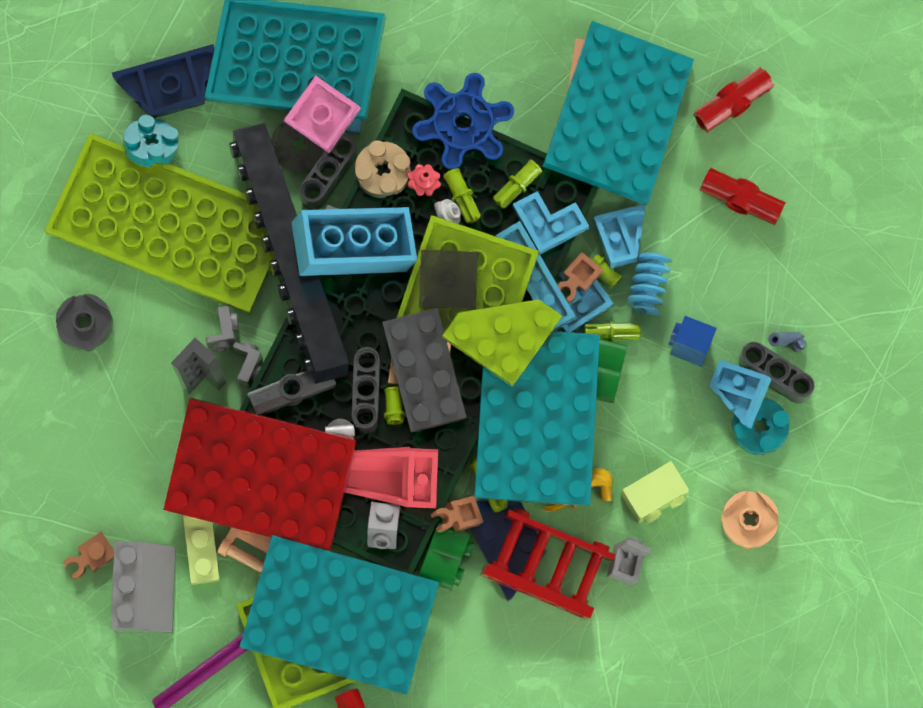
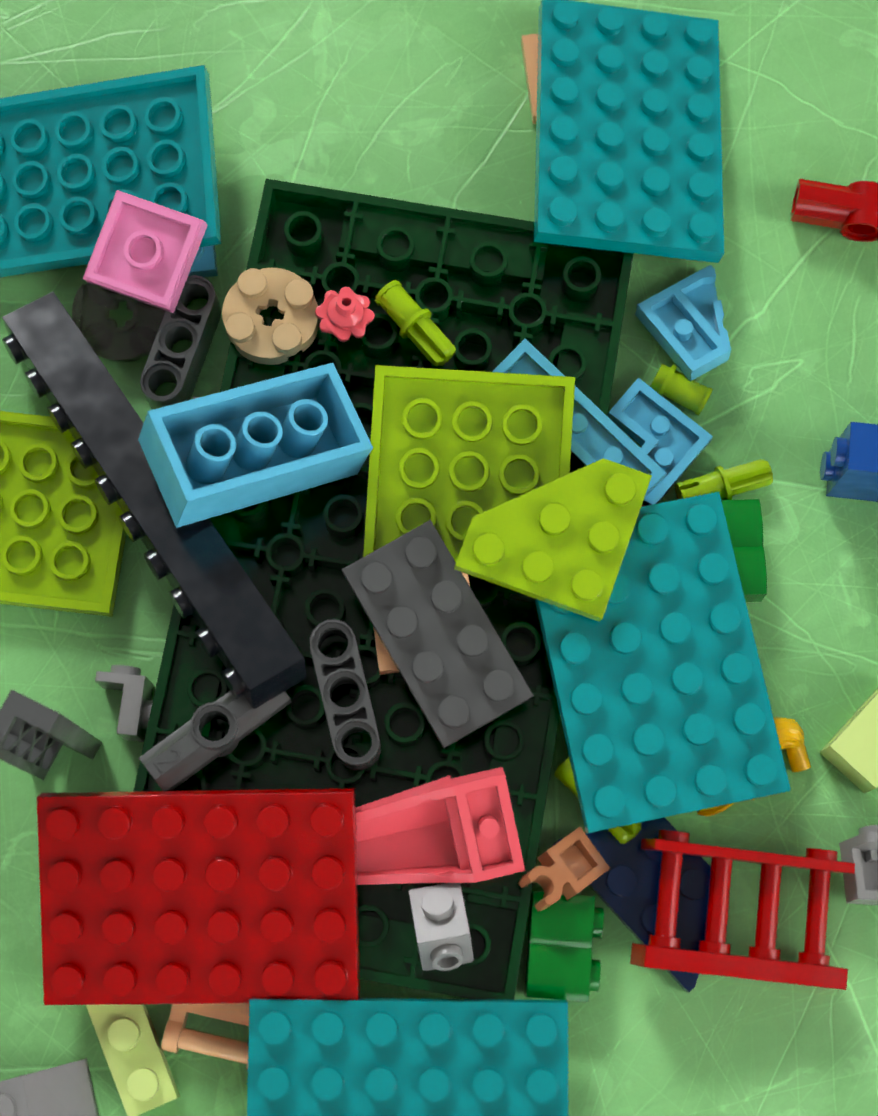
camera: 15 degrees left, 0 degrees up
(228, 325) = (78, 643): light grey bracket -> none
(341, 427) = (320, 773): white plate -> none
(394, 406) = (401, 709): lime pin -> none
(448, 211) = (398, 352): white plate -> none
(448, 279) = (435, 466): clear smoke plate -> none
(466, 103) = (377, 173): blue plate -> none
(517, 184) = (501, 281): lime axle -> none
(547, 229) = (569, 340): medium azure plate -> none
(580, 275) = (648, 403): nougat plate -> none
(647, 283) = (758, 387): medium azure piece -> none
(733, 99) = (800, 66): red piece -> none

